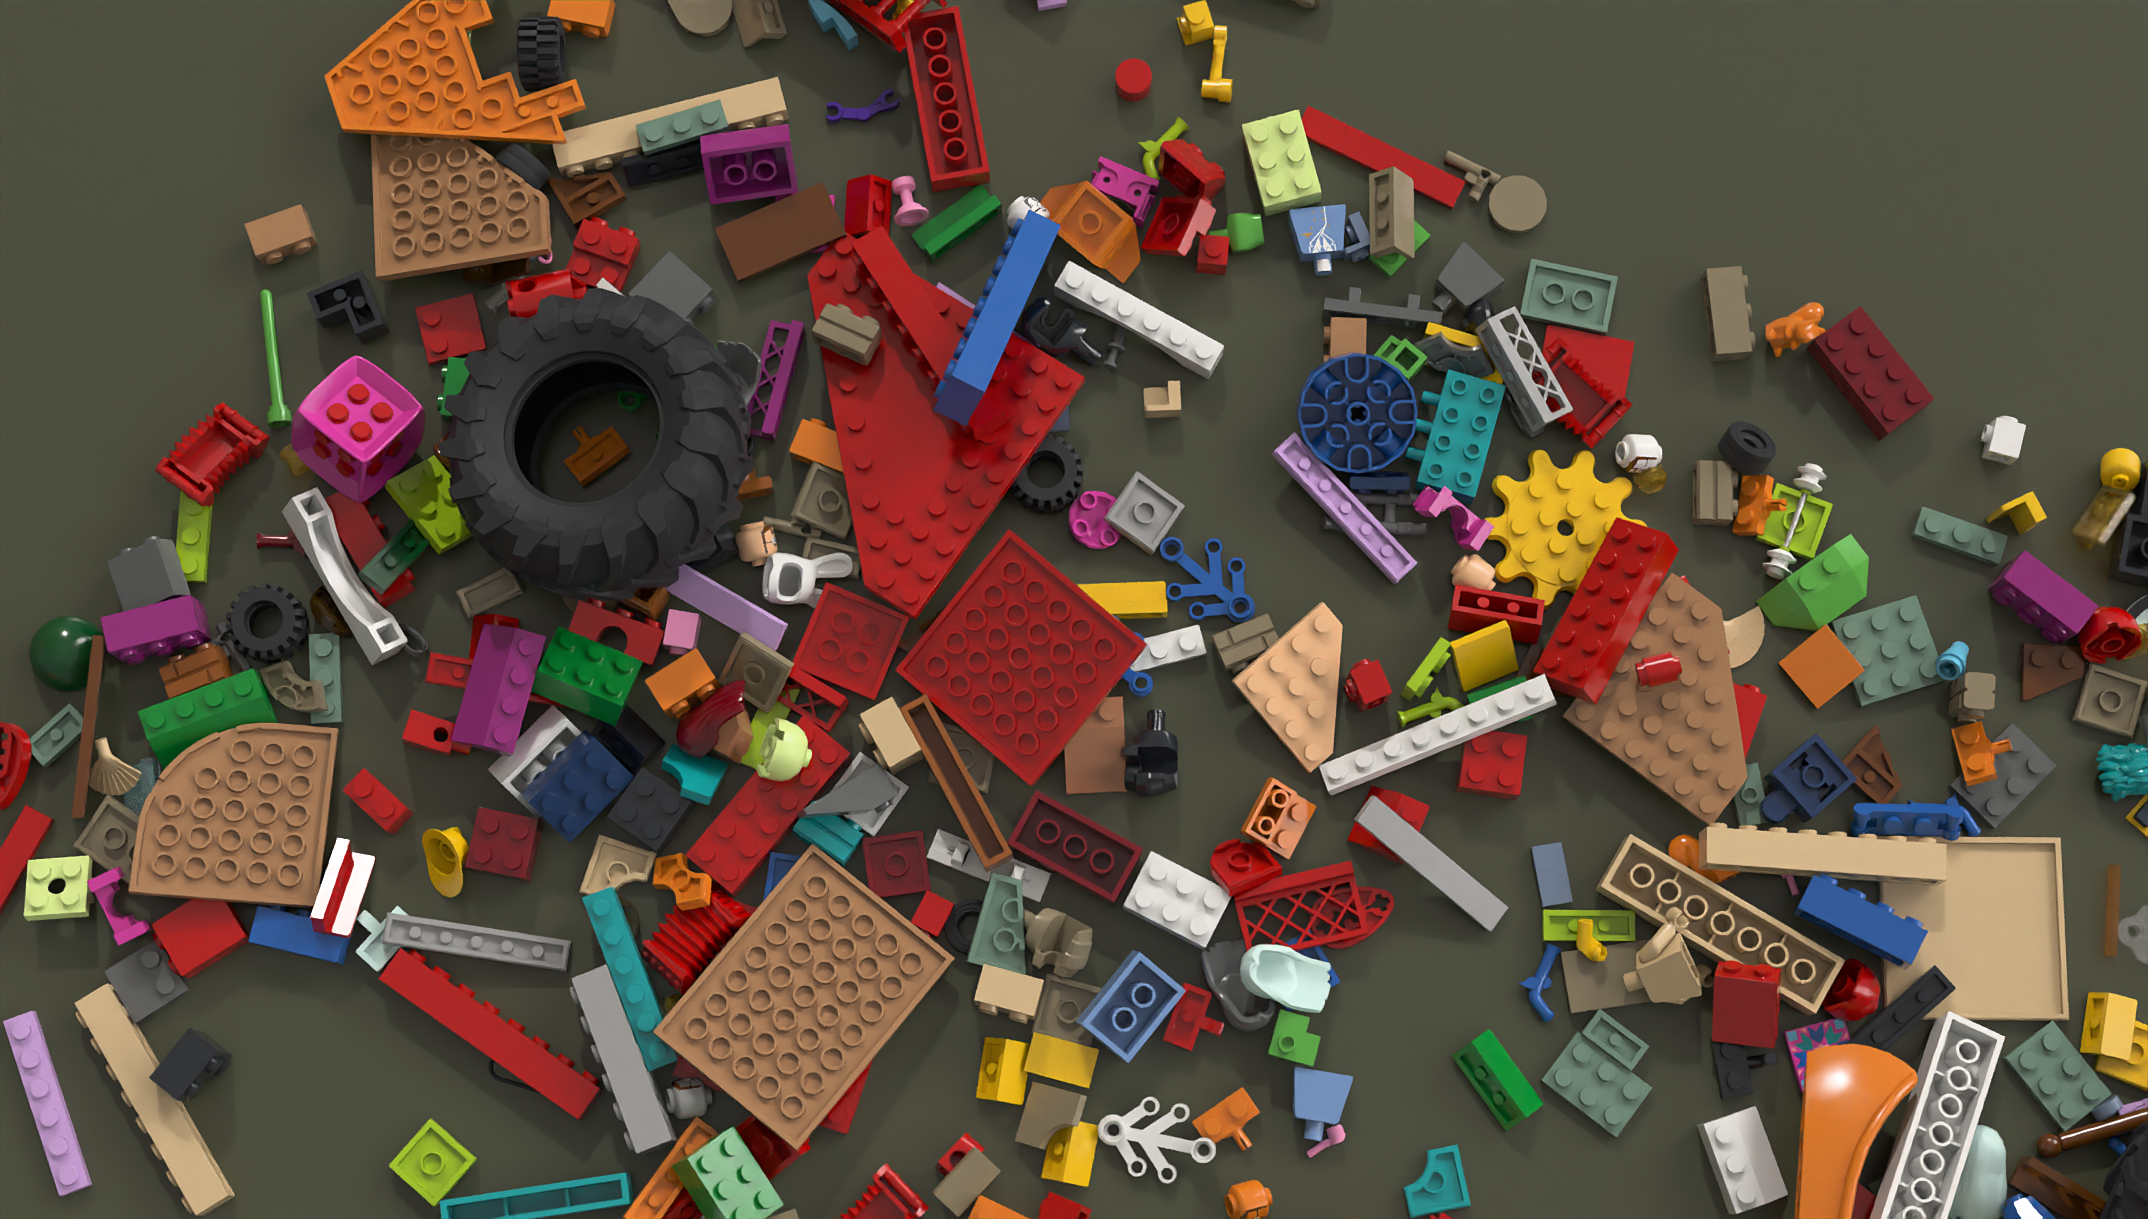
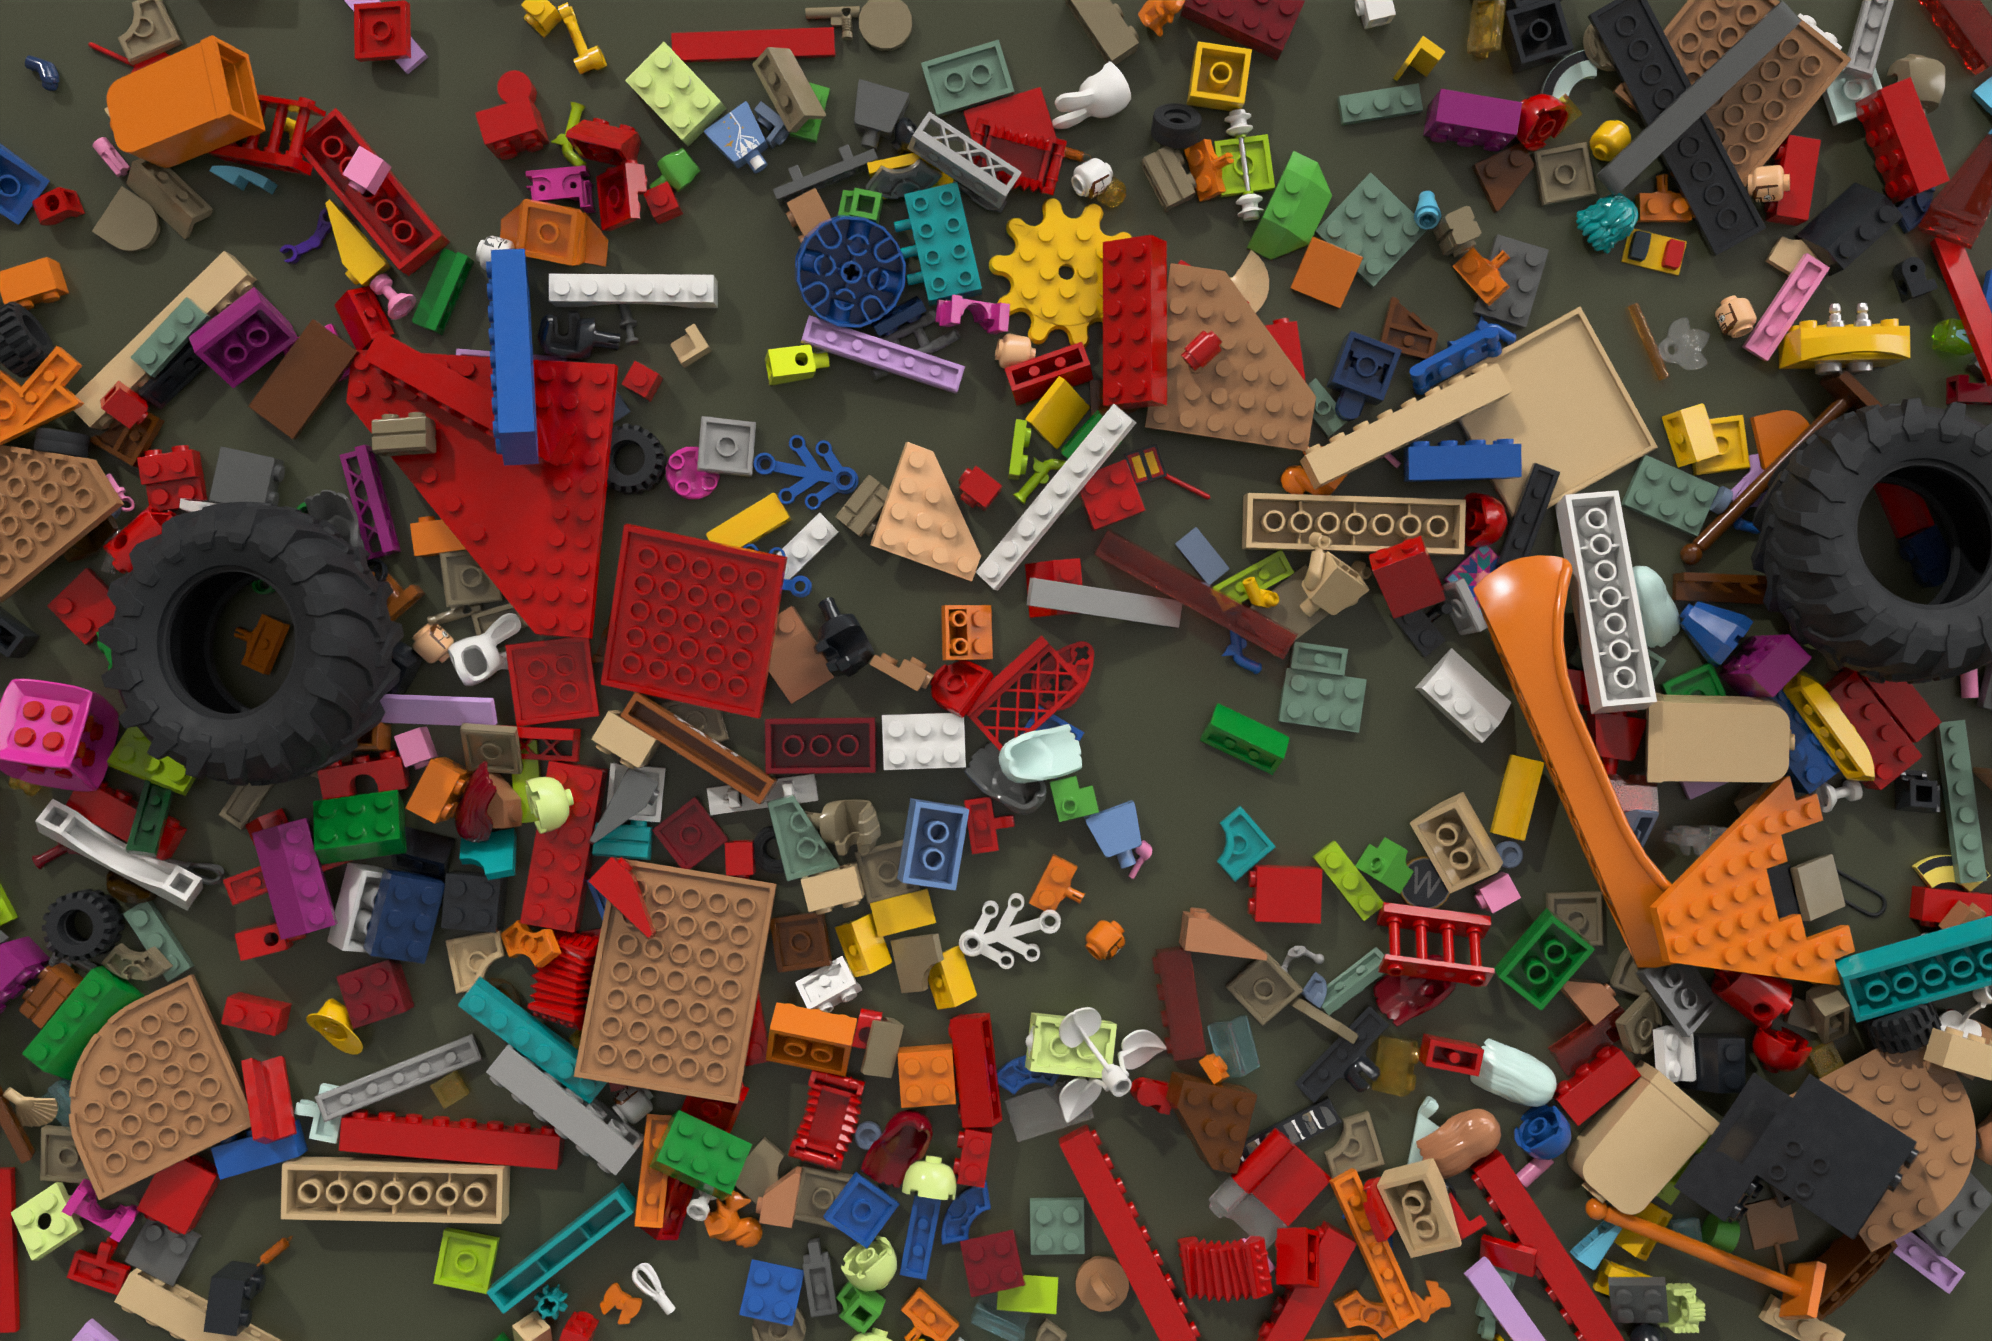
camera: 30 degrees left, 10 degrees up
(75, 966) = (99, 1269): none -> red plate
(252, 1045) = (274, 1251): none -> orange piece
(409, 1050) = (394, 1190): none -> tan brick
(518, 982) = (450, 1089): none -> clear yellow plate
(603, 165) = (124, 405): none -> red brick
(803, 874) = (622, 889): none -> red slope
(899, 143) = (356, 251): none -> yellow slope
(901, 1131) = (810, 1039): none -> orange brick
(945, 1031) = (800, 941): none -> reddish brown plate
(946, 1093) = (829, 986): none -> white bracket
(954, 77) = (366, 171): none -> bright pink brick
(1098, 407) = (642, 381): none -> red brick
(1110, 112) = (512, 128): none -> red brick
(1201, 826) = (909, 673): none -> medium nougat plate
(1242, 466) = (783, 368): none -> neon yellow torso
(1526, 907) = (1196, 594): none -> clear red tile
(1544, 757) = (1148, 466): none -> piece
(1633, 422) = (1074, 154): none -> orange piece
(1685, 379) = (1097, 97): none -> white piece
(1787, 1071) = (1465, 611): none -> light grey tile
(1813, 424) = (1219, 76): none -> yellow brick

